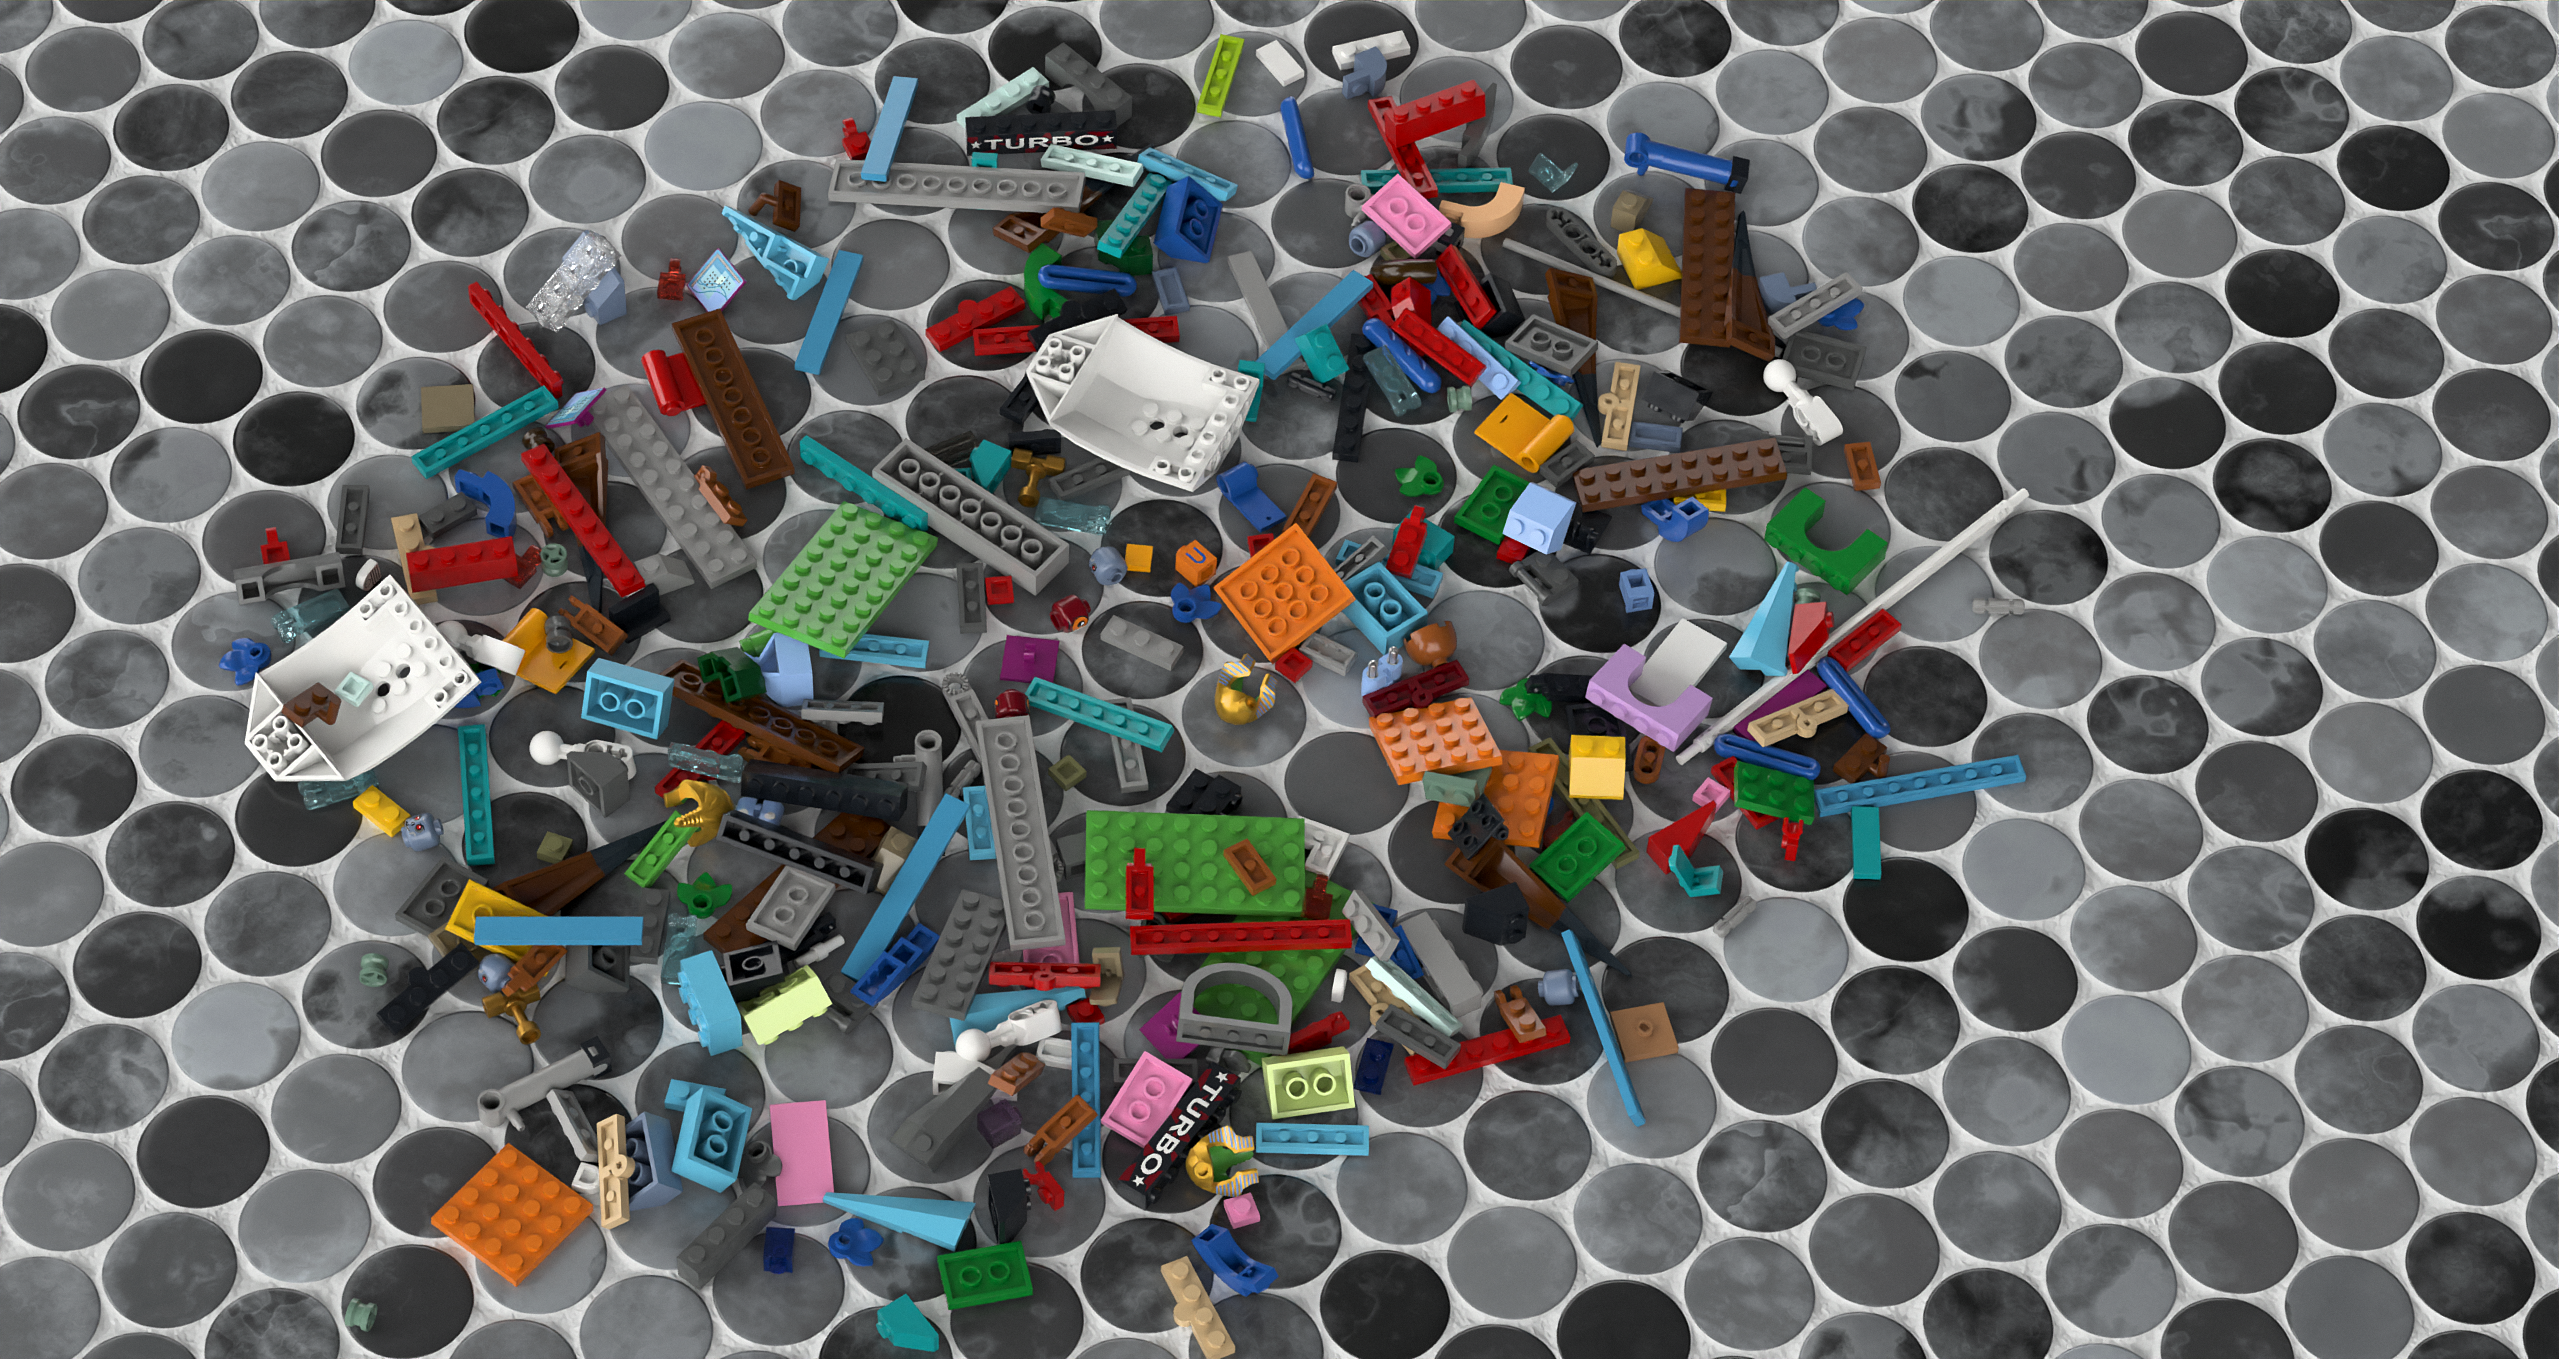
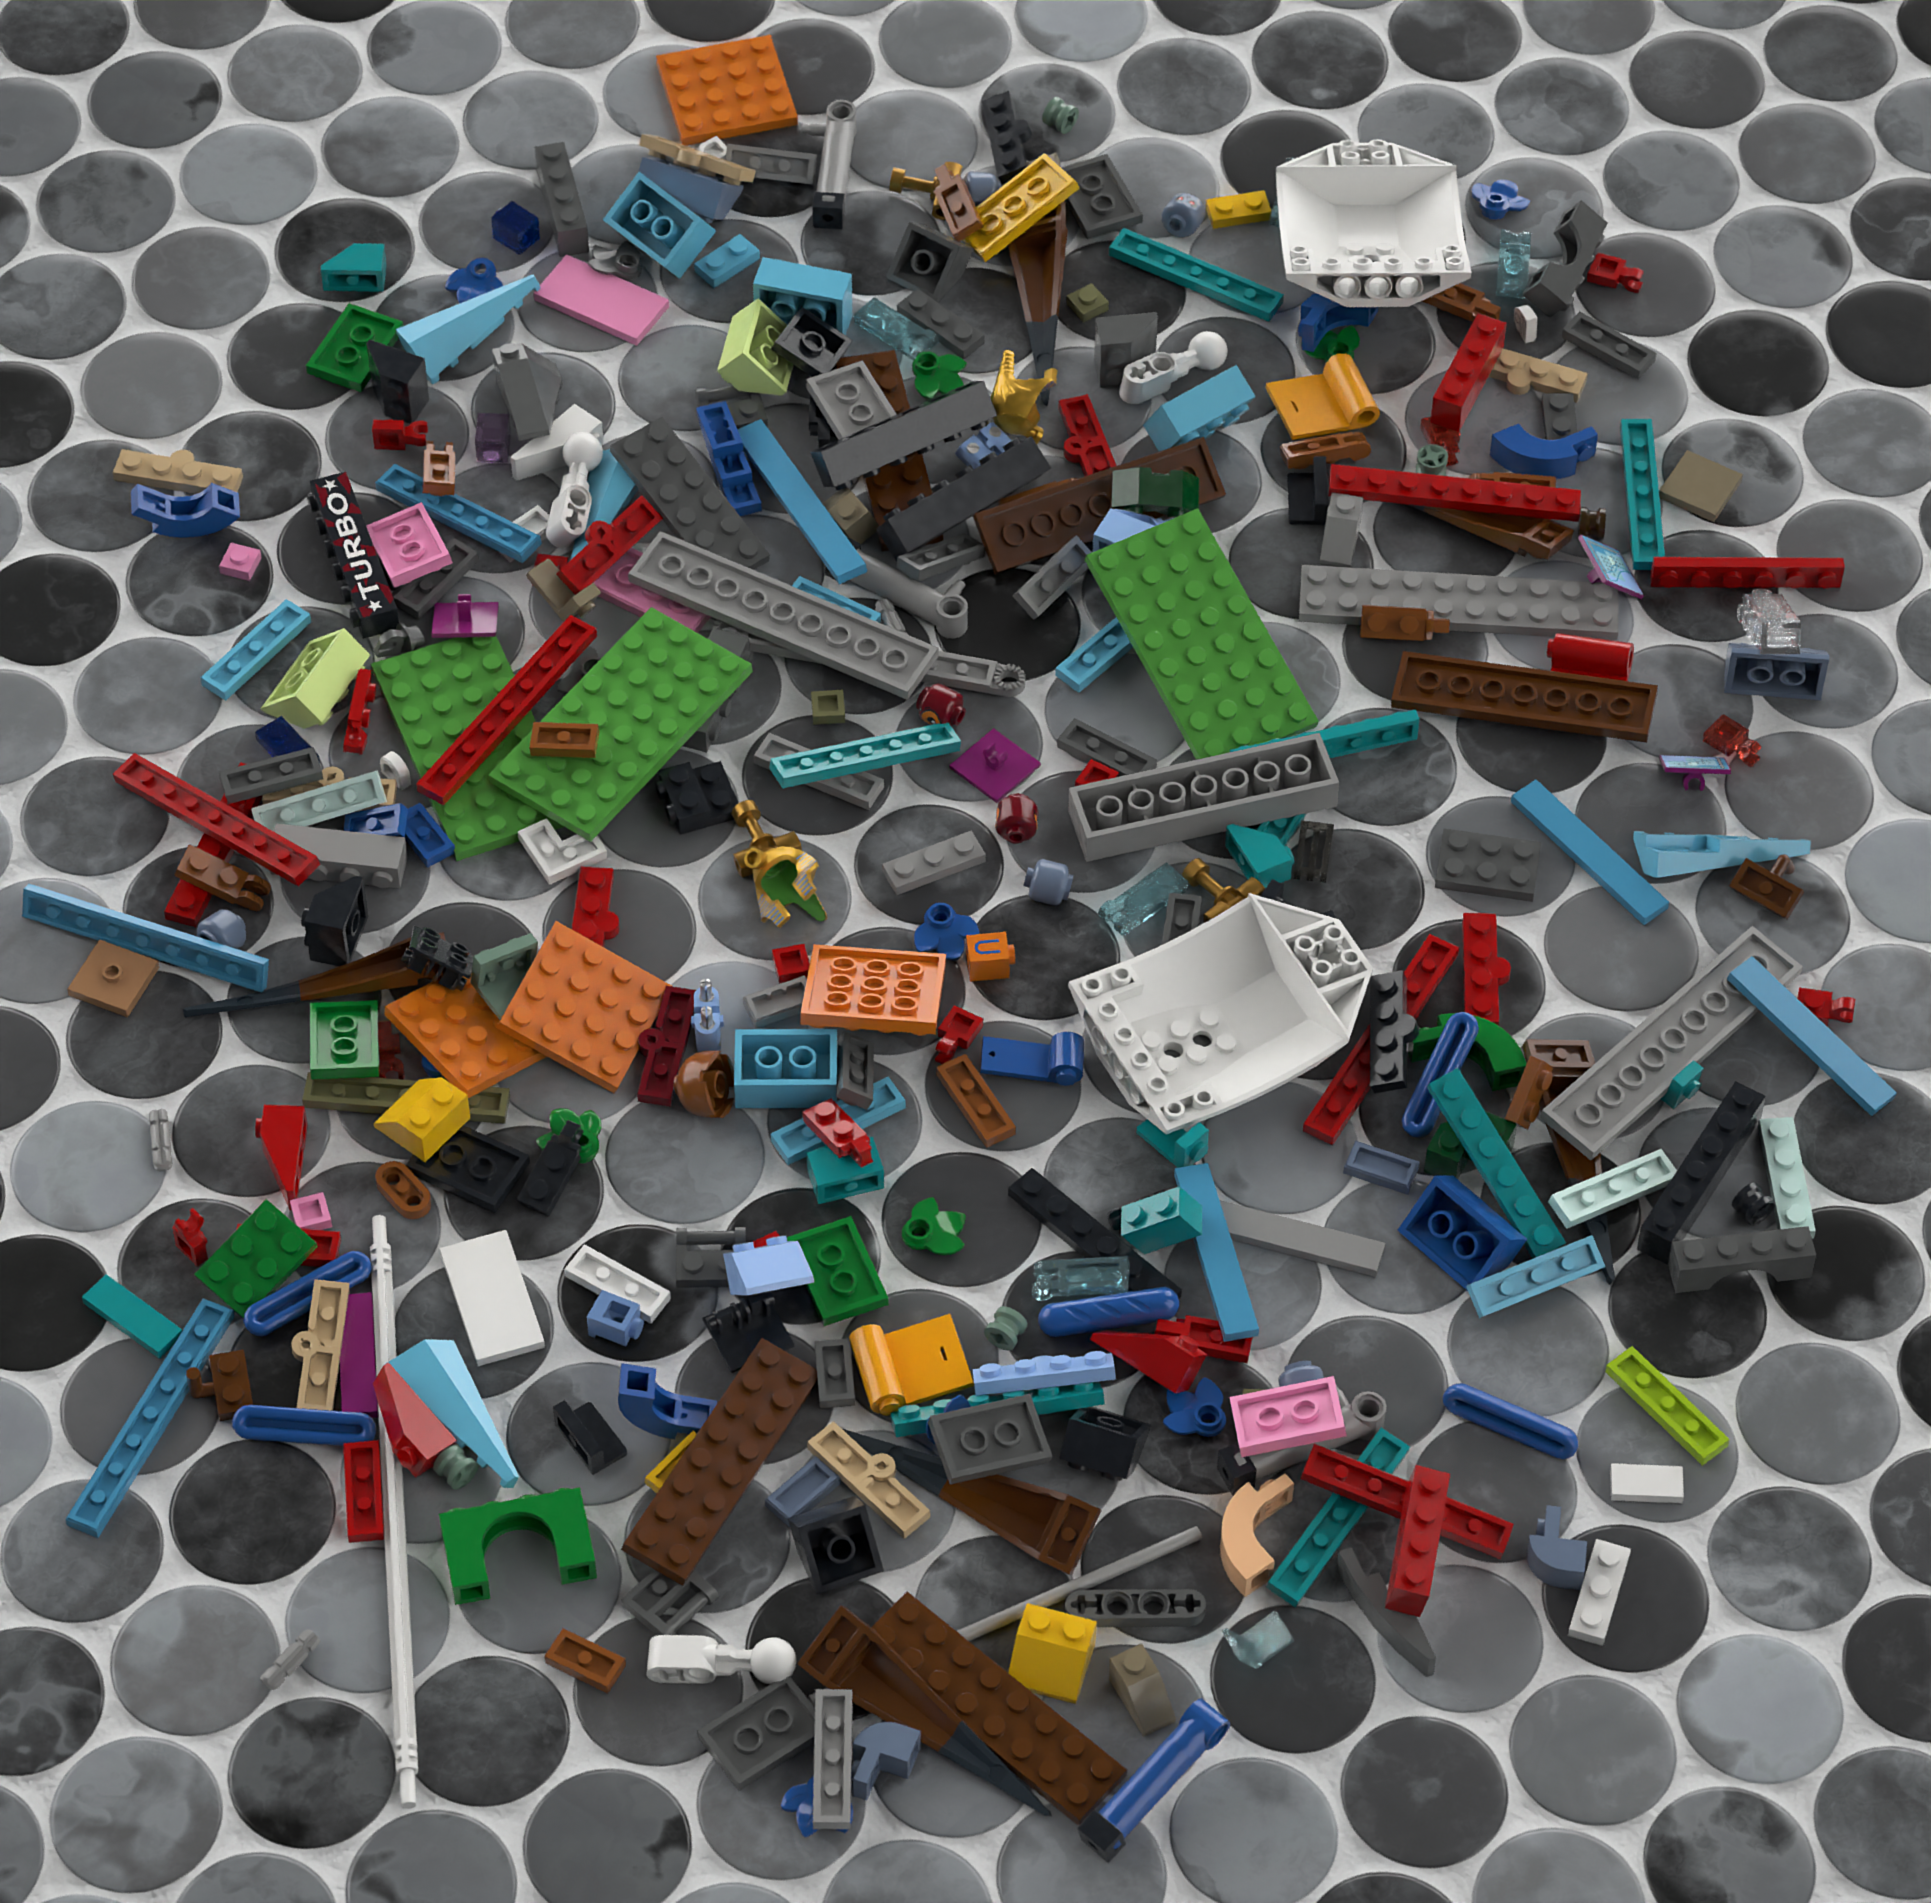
camera: 130 degrees right, 0 degrees up
(313, 703) = (1383, 186): reddish brown plate -> none
(354, 689) = (1382, 231): light aqua tile -> none
(483, 648) = (1393, 338): white beam -> none
(558, 634) = (1327, 409): dark grey wheel -> none
(558, 931) = (965, 218): dark azure tile -> none
(659, 852) = (998, 343): bright green tile -> none
(706, 762) = (1074, 428): clear light blue plate -> none
(819, 951) = (799, 420): white bar -> none
(1016, 1073) = (521, 460): dark orange plate -> none
(1139, 557) = (1042, 922): light orange tile -> none
(1139, 887) = (621, 641): red hinge -> none
(1209, 1161) = (298, 555): piece -> none
(1214, 737) = (747, 815): none -> pearl gold bar
(1233, 1032) = (464, 607): dark grey window -> none
(1316, 902) = (489, 787): clear red plate -> none
(1356, 797) = (592, 905): none -> red hinge
(1370, 925) = (415, 797): light grey plate -> none
(1395, 271) = (1213, 1370): dark brown cylinder -> none
(1438, 347) = (1080, 1334): red tile -> none
(1465, 286) = (1151, 1425): red tile -> none
(1482, 1043) = (216, 819): none -> red plate
(1609, 607) = (602, 1273): none -> white plate
(1664, 724) = (496, 1187): lavender arch -> none
(1695, 880) = (236, 1122): teal bracket -> none
(1720, 558) = (589, 1435): none -> black panel

